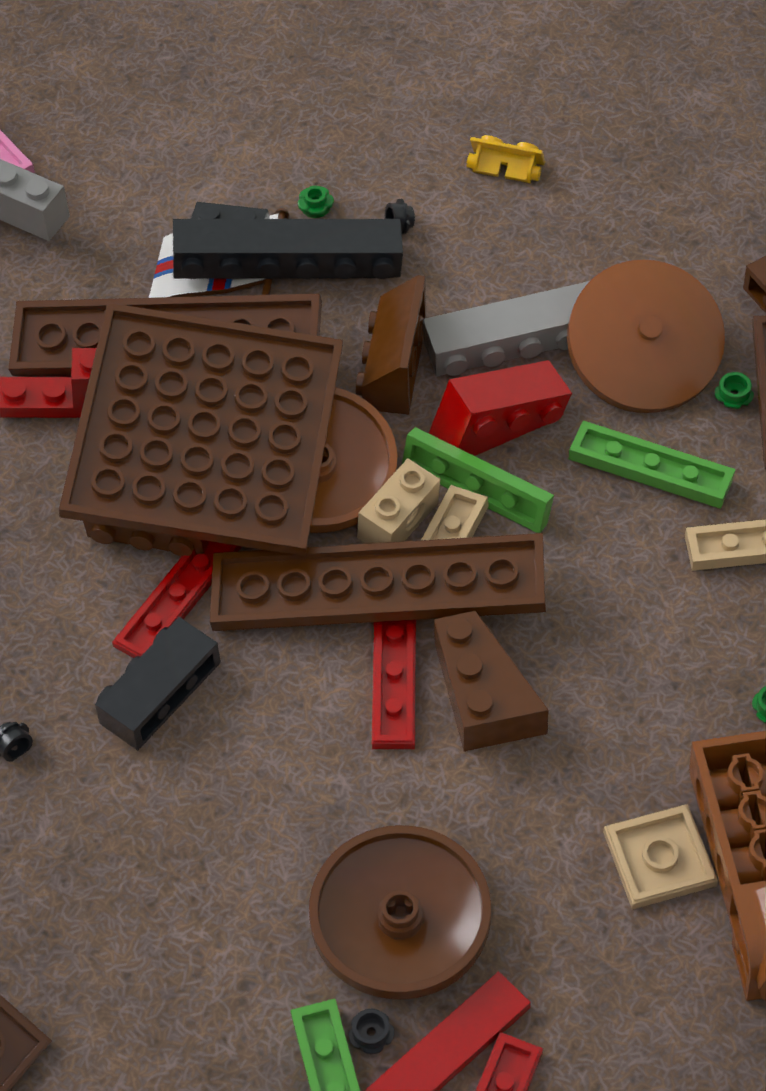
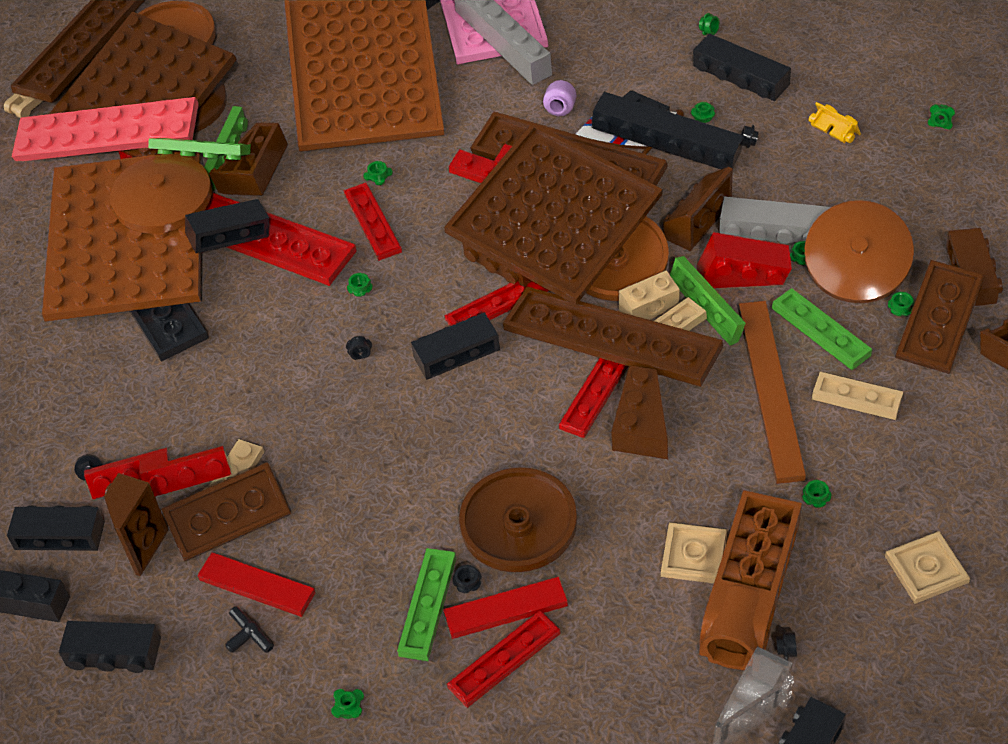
camera: 30 degrees right, 5 degrees down
(100, 248) = (559, 98): none -> lavender head
(252, 67) = (709, 24): none -> green plate
(334, 117) = (741, 67): none -> black brick
(560, 357) = (797, 251): none -> green plate
(636, 583) = (772, 393): none -> dark orange tile
(637, 95) = (944, 110): none -> green plate

